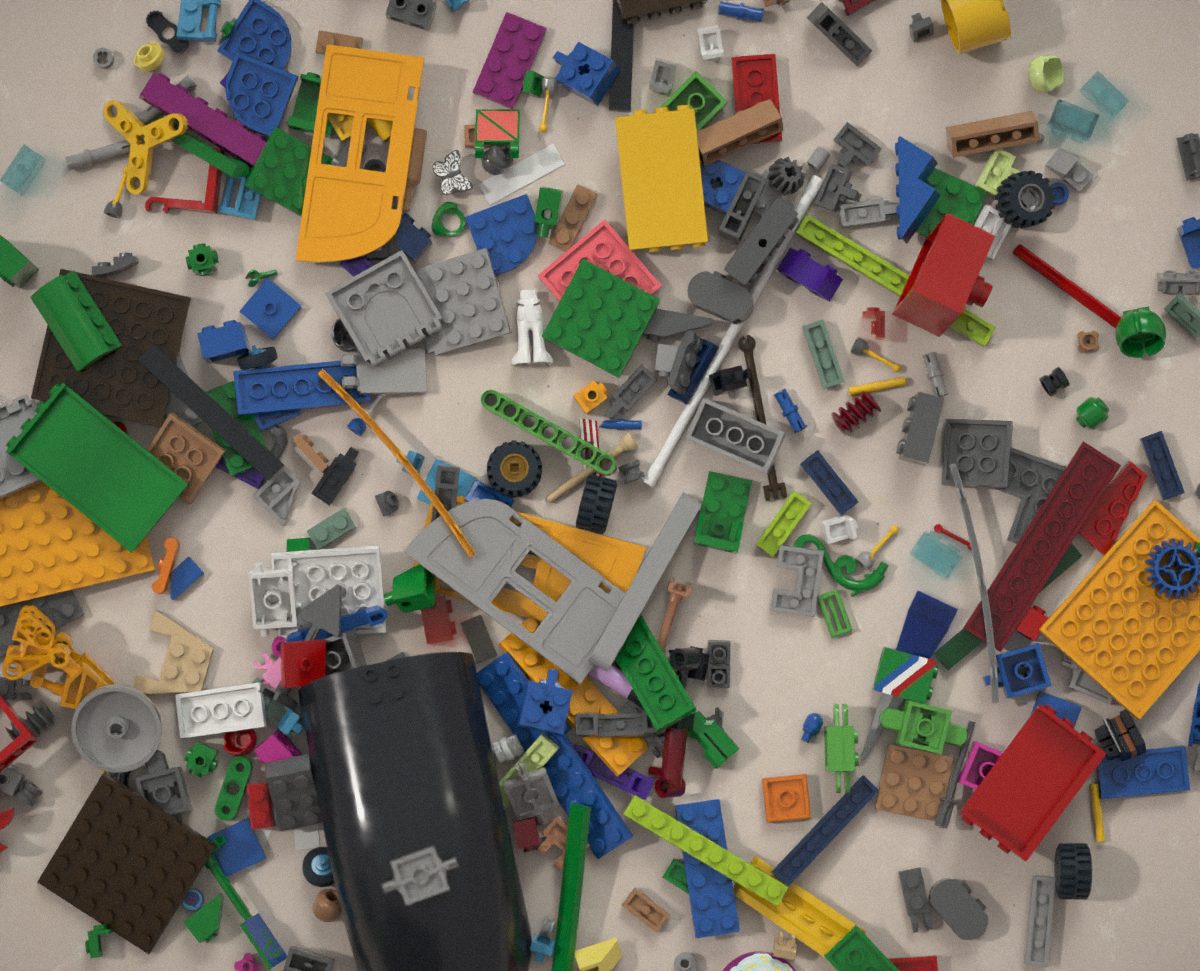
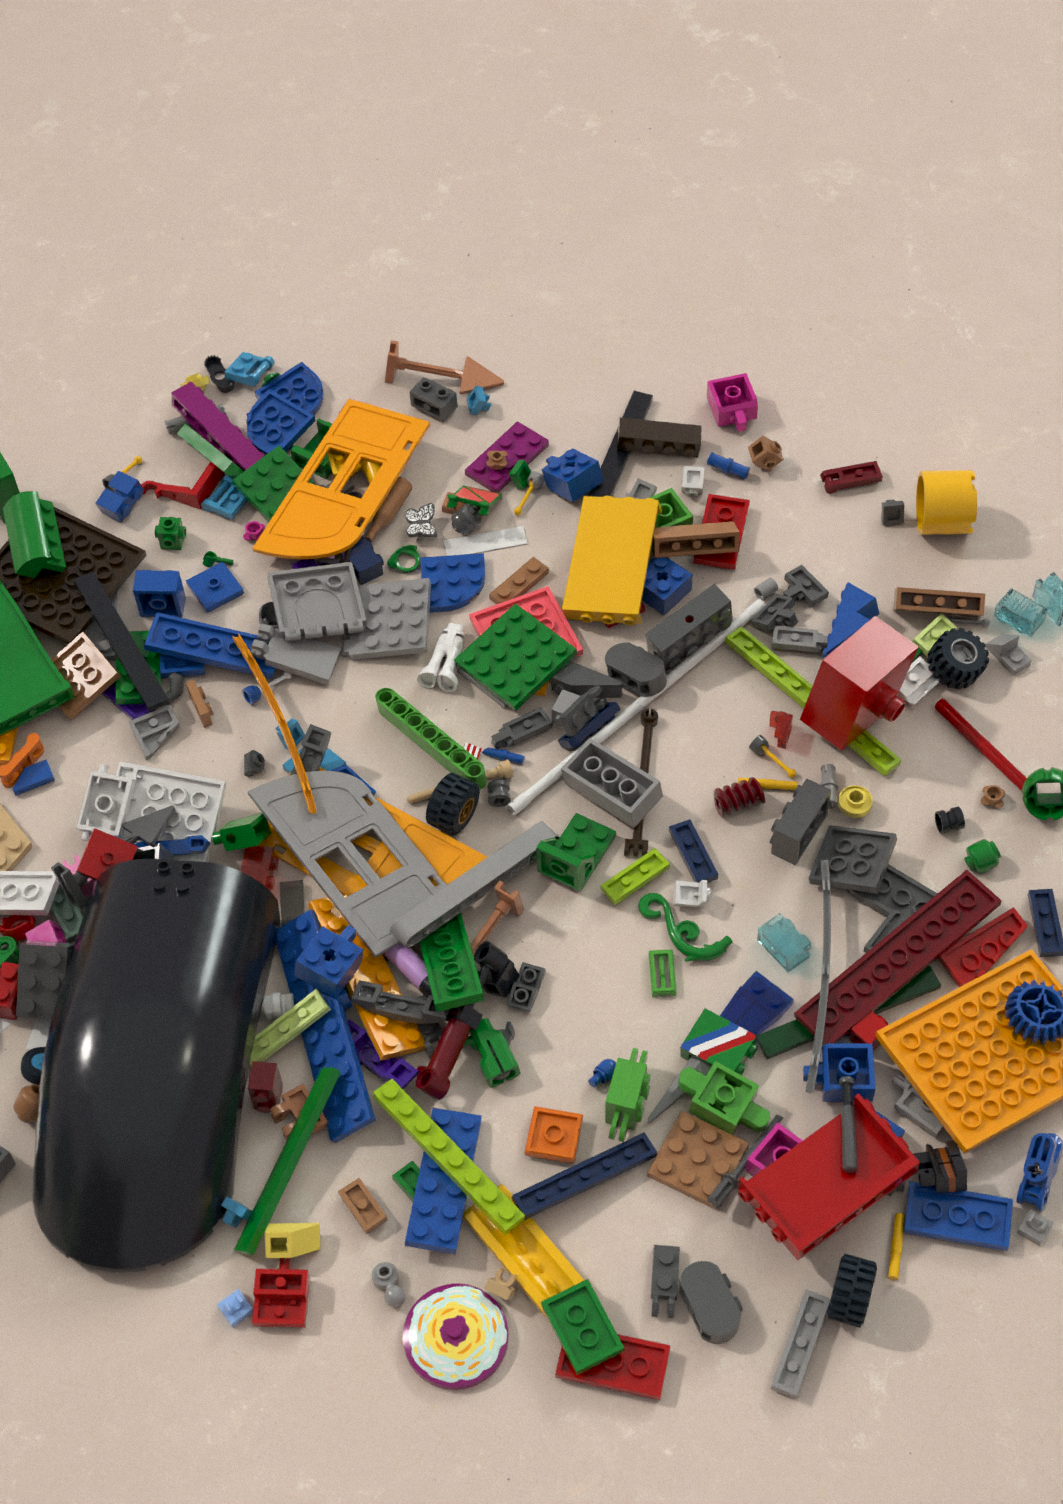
camera: 20 degrees right, 30 degrees down
(23, 170) = (48, 436): clear light blue brick -> none
(96, 58) = (157, 375): light grey bush -> none
(98, 154) = (118, 441): light grey pin -> none
(122, 263) = (98, 518): dark grey slope -> none
(133, 229) = (119, 503): none -> blue piece
(141, 154) = (159, 434): yellow piece -> none
(257, 358) = (186, 611): black wheel -> none
(289, 234) = (253, 530): none -> dark pink plate
(289, 722) = (71, 917): dark azure tile -> none
(331, 528) = (198, 767): sand green plate -> none
(335, 477) = (214, 728): black hinge -> none
(420, 875) = (125, 1048): light grey plate -> none
(510, 79) = (497, 459): none -> medium nougat plate
(514, 469) = (385, 761): black wheel -> none
(531, 794) = (286, 1045): light grey plate -> none
(547, 927) = (250, 1192): light grey bush -> none
(548, 199) = (499, 562): green torso -> none
(590, 404) = (482, 723): light orange brick -> none
(729, 380) = (622, 737): black brick -> none
(742, 207) = (678, 598): dark grey slope -> none
(786, 176) = (733, 588): dark grey gear -> none
(790, 411) = (673, 781): blue pin -> none
(809, 567) = (634, 948): light grey plate -> none
(813, 276) = (730, 673): dark purple brick -> none
(823, 354) = (721, 742): sand green plate -> none
(839, 34) = (814, 499): dark grey slope -> none
(866, 559) = (710, 930): hinge -> none
(938, 528) = (806, 933): red hinge -> none
(964, 387) = (855, 801): none -> light yellow plate
(1041, 744) = (849, 1142): none -> dark grey piece
(1046, 73) = (1003, 568): yellowish green hair -> none
(1061, 192) = (993, 670): blue tile -> none

